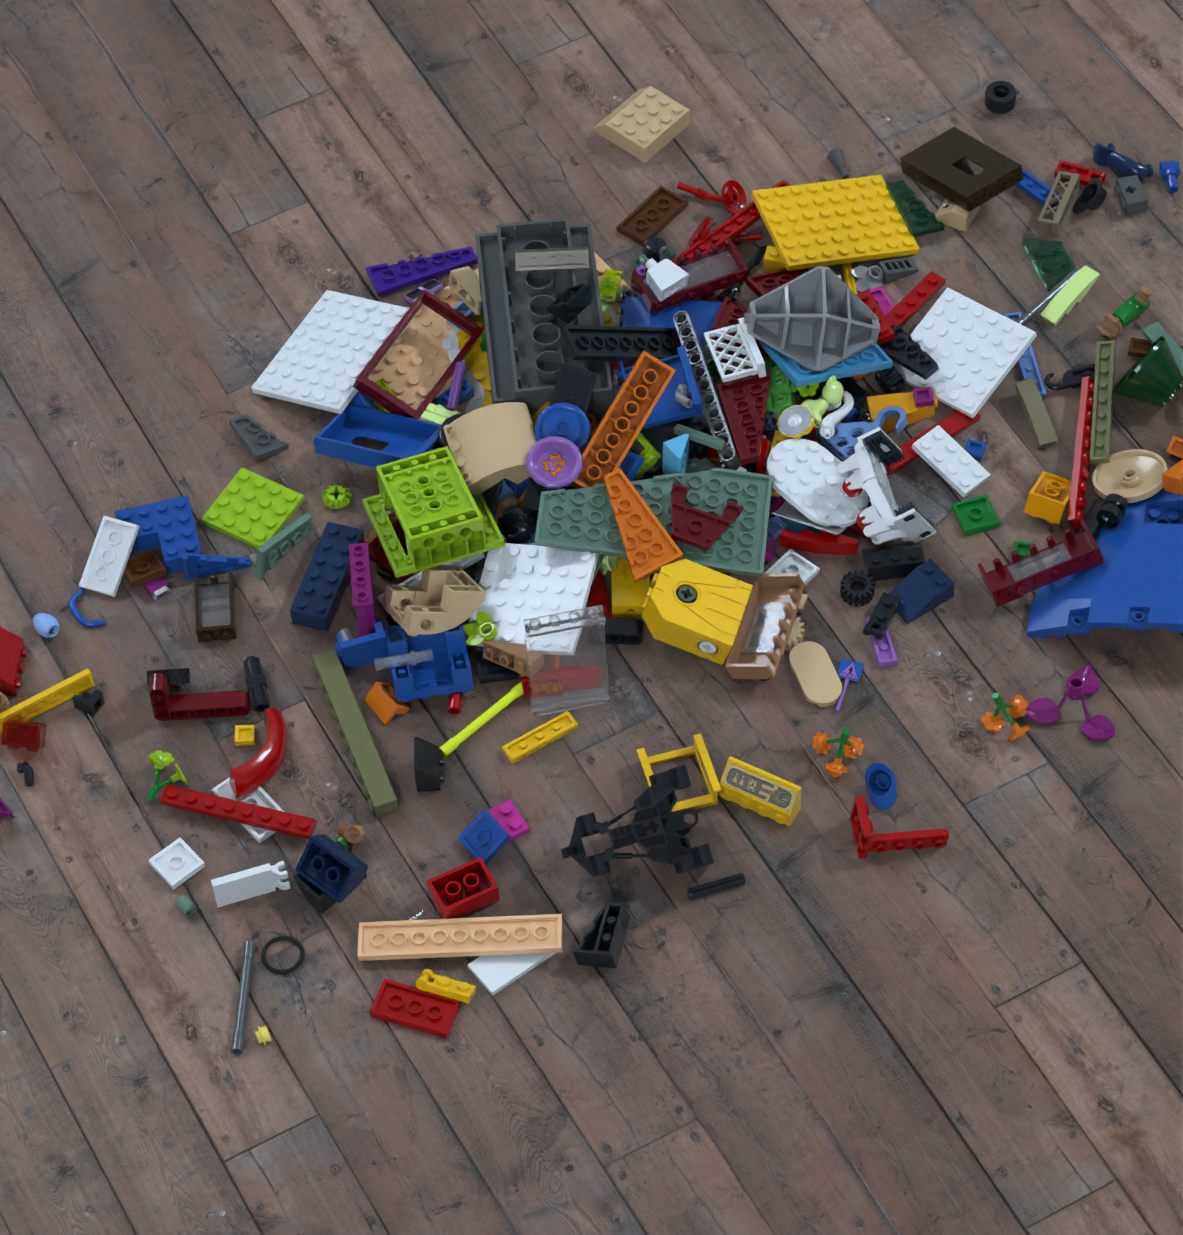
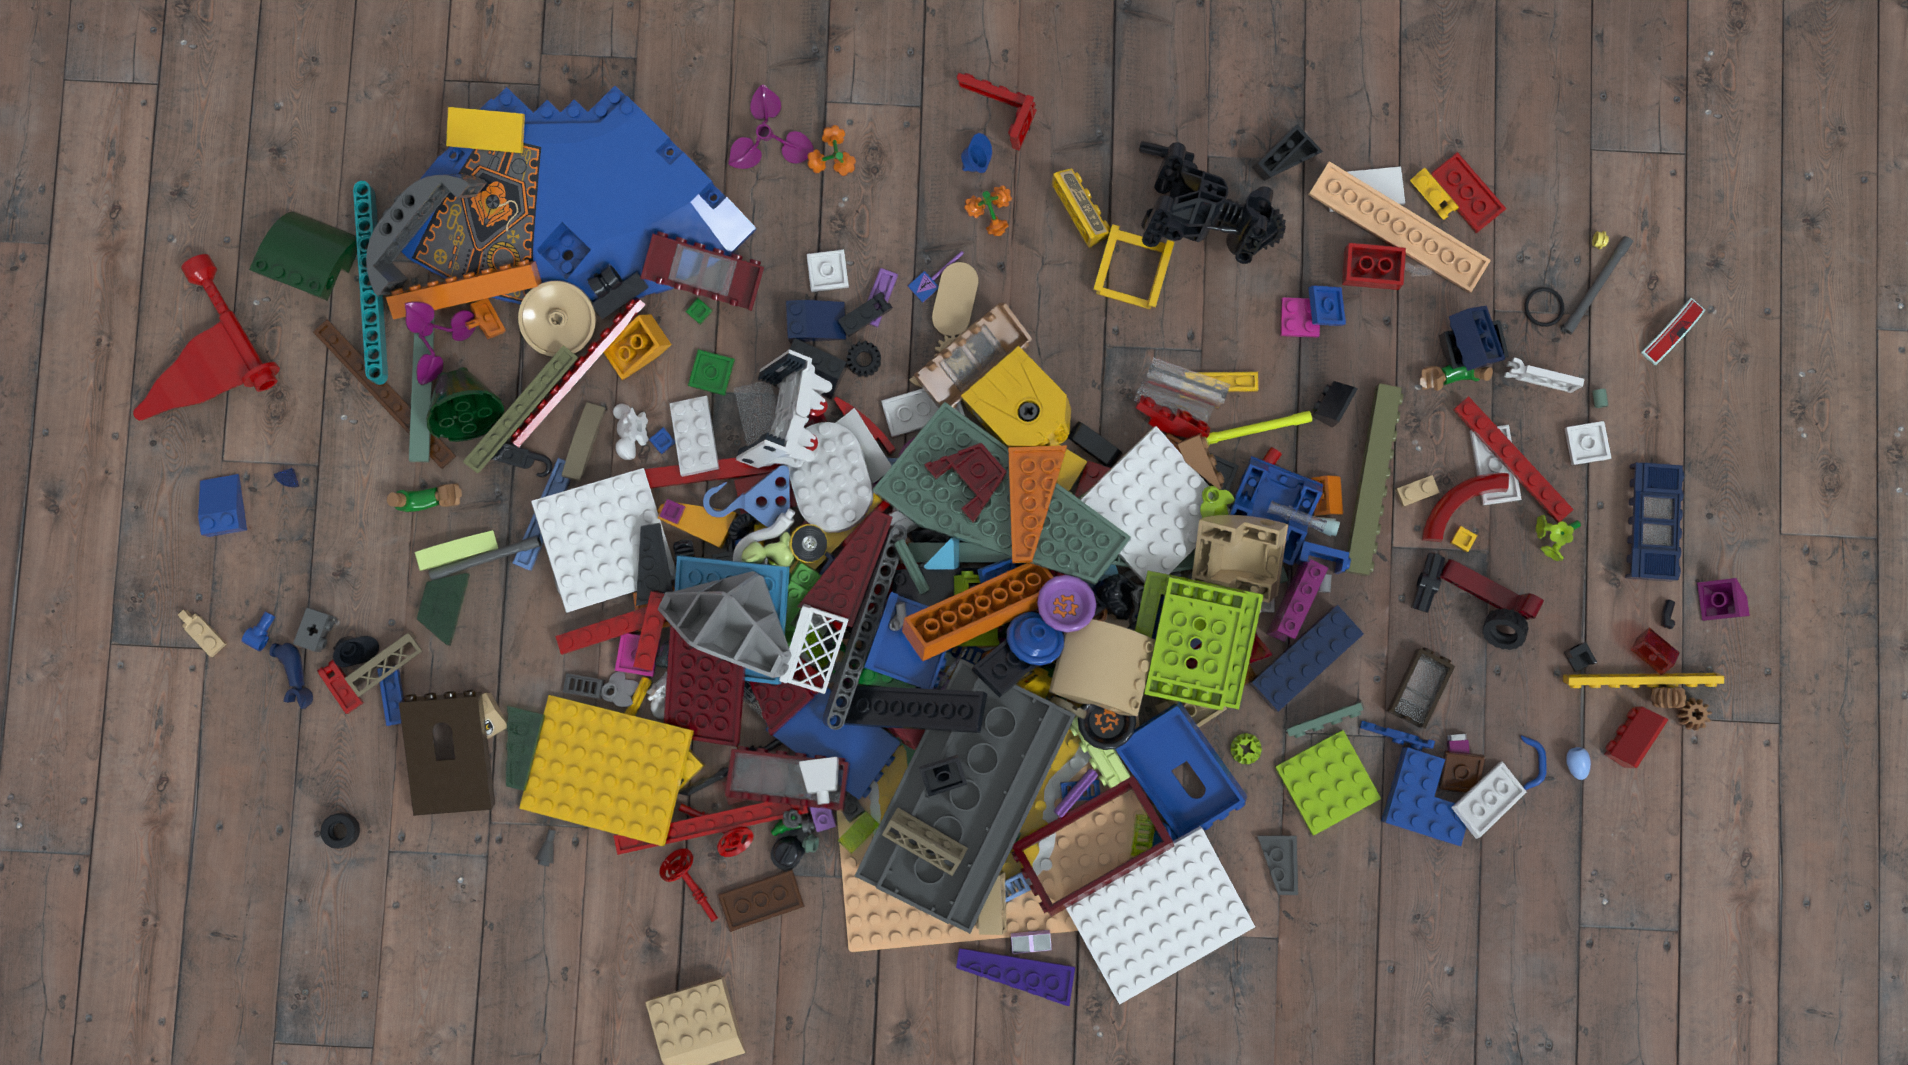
camera: 150 degrees left, 30 degrees up
(79, 833) = (1655, 522): none -> dark blue window
(146, 999) = (1673, 332): none -> slope
(309, 749) = (1417, 491): none -> tan plate
(369, 678) = (1331, 526): none -> light aqua cone
(940, 636) = (827, 270): none -> white tile
(1005, 440) = (629, 428): none -> white animal

